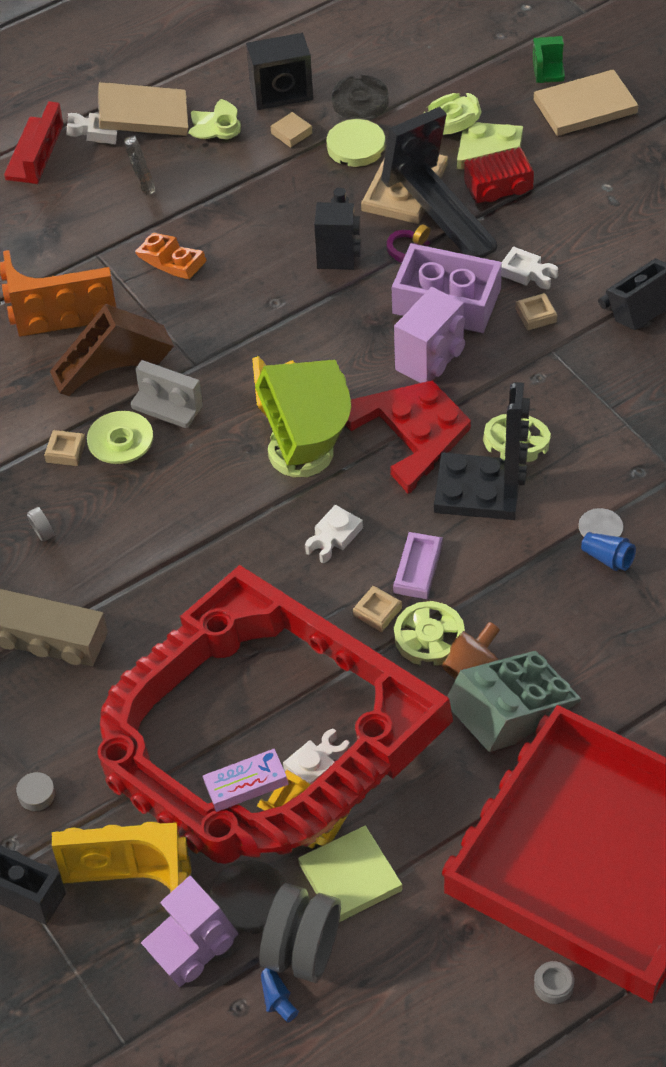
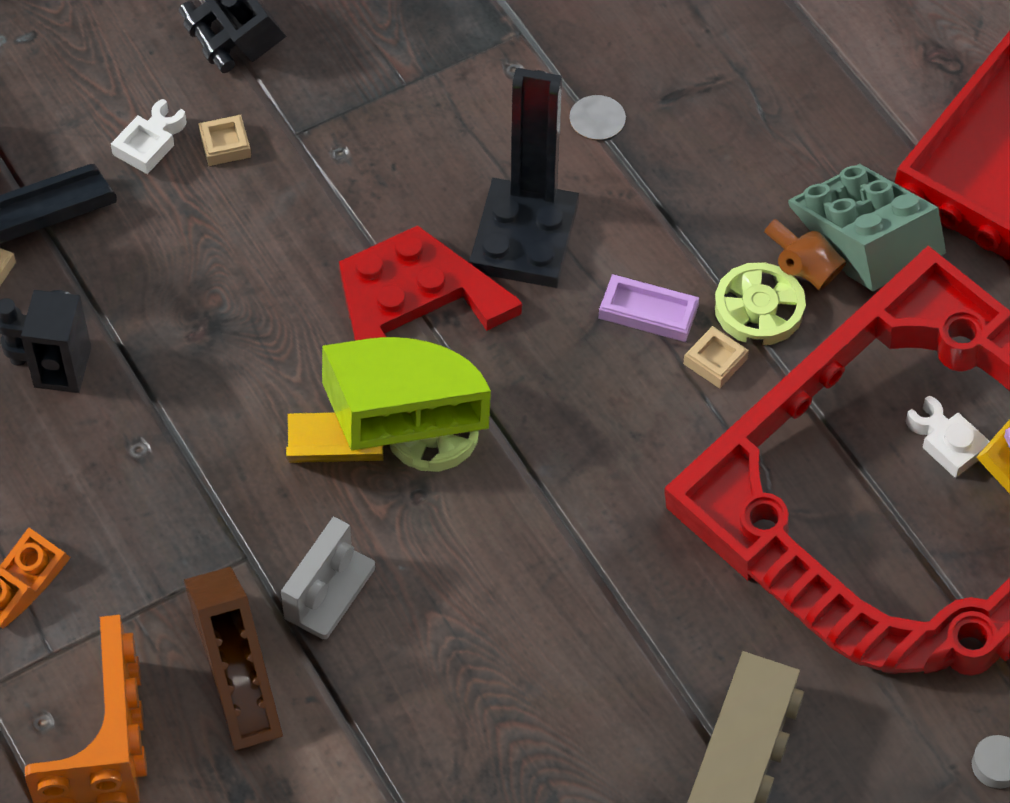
camera: 90 degrees left, 5 degrees up
(40, 524) = (548, 754): light grey tile -> none
(65, 448) = (391, 730): tan tile -> none
(120, 437) = (392, 627): yellowish green dish -> none
(334, 529) = (586, 393): white plate -> none
(419, 237) = (80, 242): magenta piece -> none
(429, 336) = (279, 243): lavender brick -> none
(462, 276) = (182, 221): lavender brick -> none
(496, 437) = (455, 178): yellowish green piece -> none
(610, 550) = (650, 104): blue cone -> none

